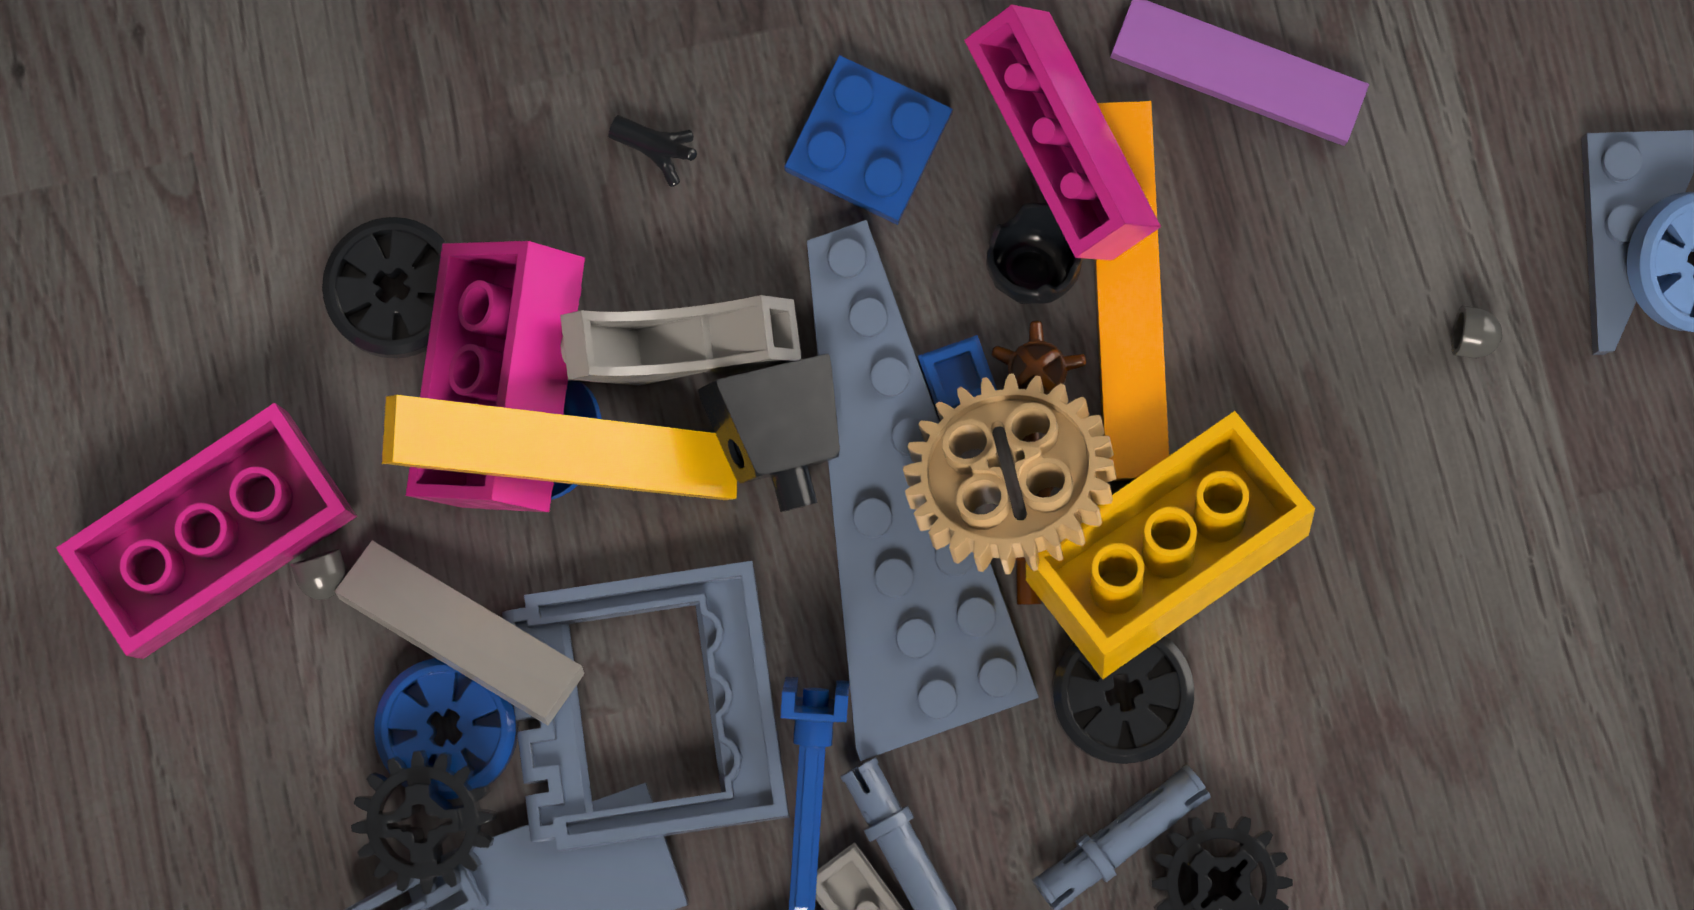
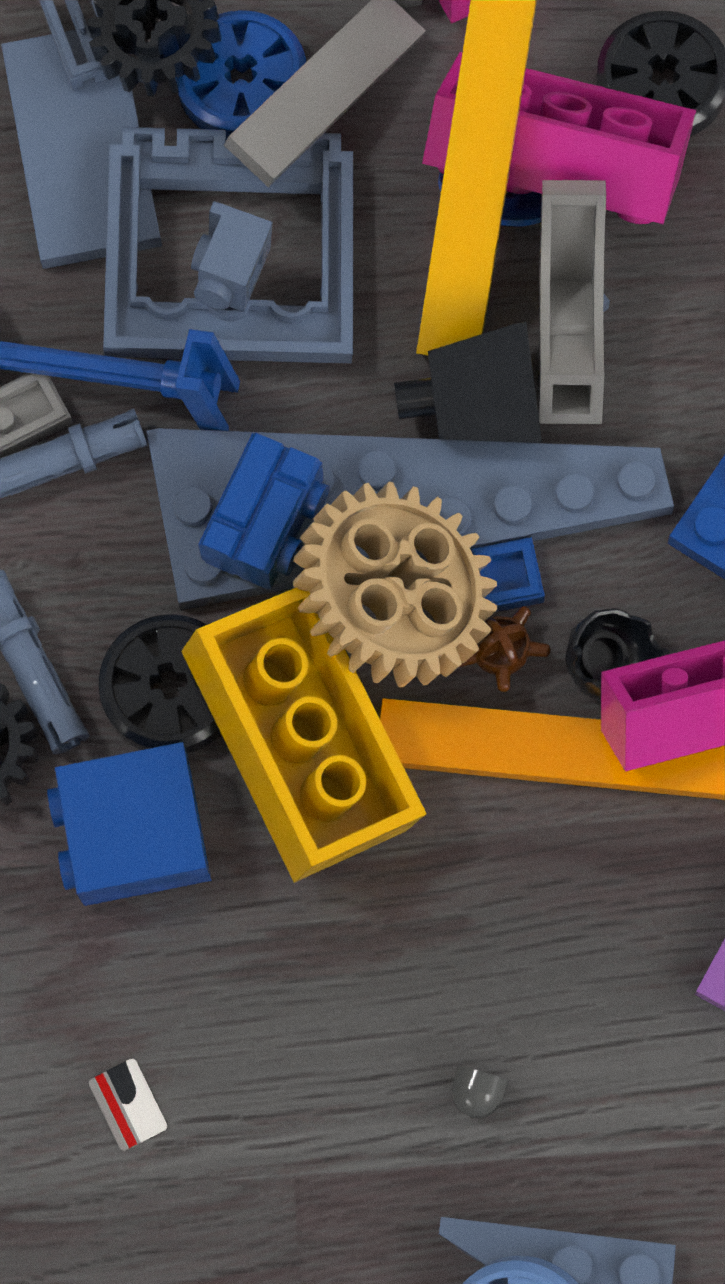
camera: 105 degrees right, 10 degrees down
(679, 695) = (230, 257): none -> sand blue brick
(947, 618) = (263, 512): none -> blue brick
(1280, 704) = (129, 824): none -> blue brick
(1537, 666) = (127, 1104): none -> sticker

